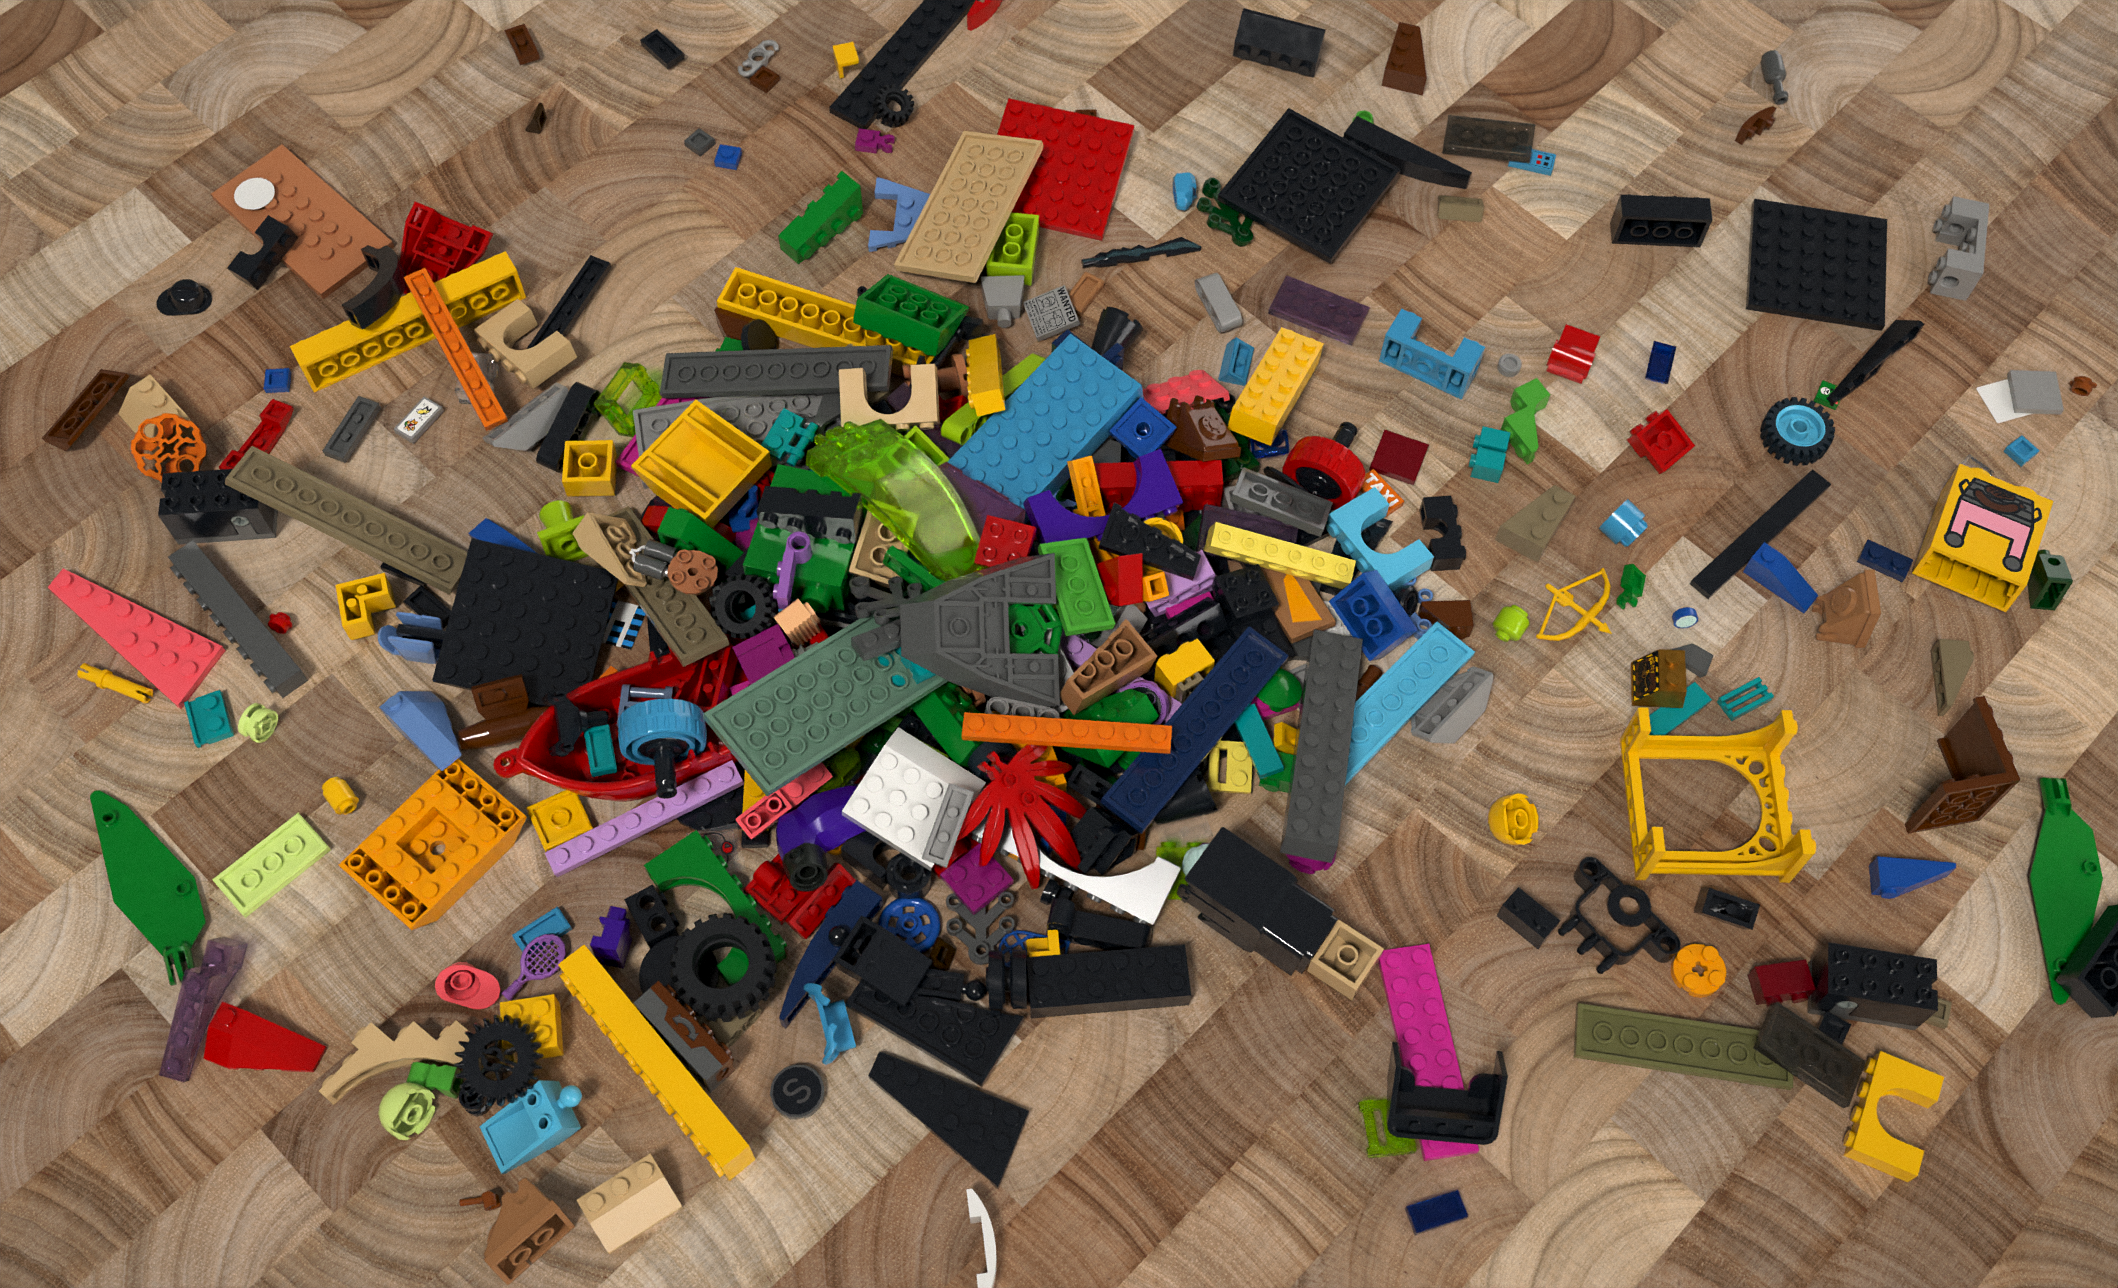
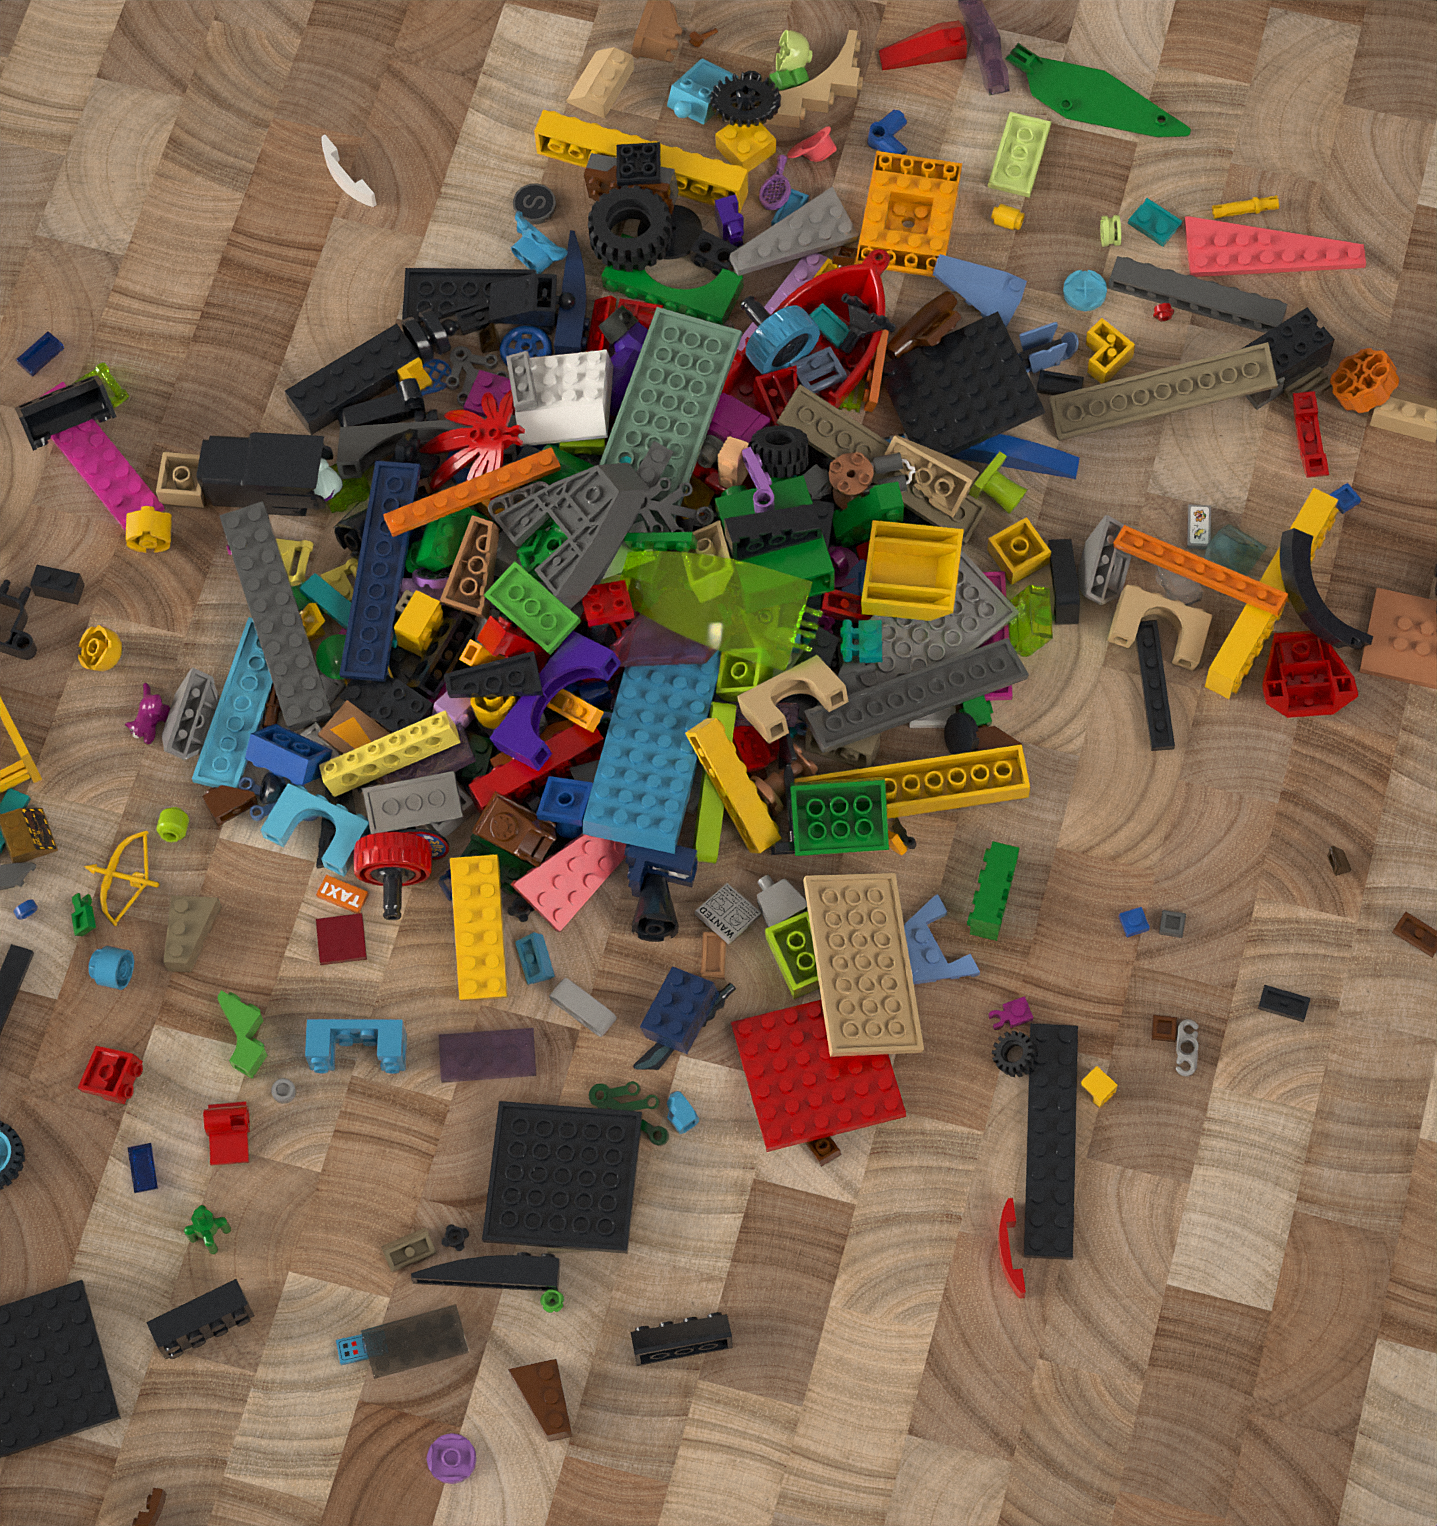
camera: 155 degrees right, 5 degrees up
(330, 687) = (1085, 290): none -> medium azure tile
(351, 429) = (1244, 487): dark grey plate -> none
(378, 964) = (886, 129): none -> blue piece
(407, 385) = (1234, 550): none -> clear light blue slope
(527, 835) = (844, 256): none -> reddish brown plate
(549, 886) = (806, 231): none -> light grey wing
(666, 1029) = (638, 164): none -> black tile
(963, 1118) = (402, 245): black wing -> none
(1140, 255) = (679, 1010): none -> dark blue brick
(1272, 836) = (288, 550): none -> light yellow plate
(1408, 919) = (148, 530): none -> yellow brick
(1418, 195) = (451, 1231): none -> black plate
(1441, 515) = (279, 894): black arch -> none
(1485, 739) = (149, 714): none -> magenta animal
(1490, 454) = (260, 980): teal piece -> none
(1497, 63) = (451, 1458): none -> medium lavender tile
(1628, 279) = (205, 1227): none -> green plant

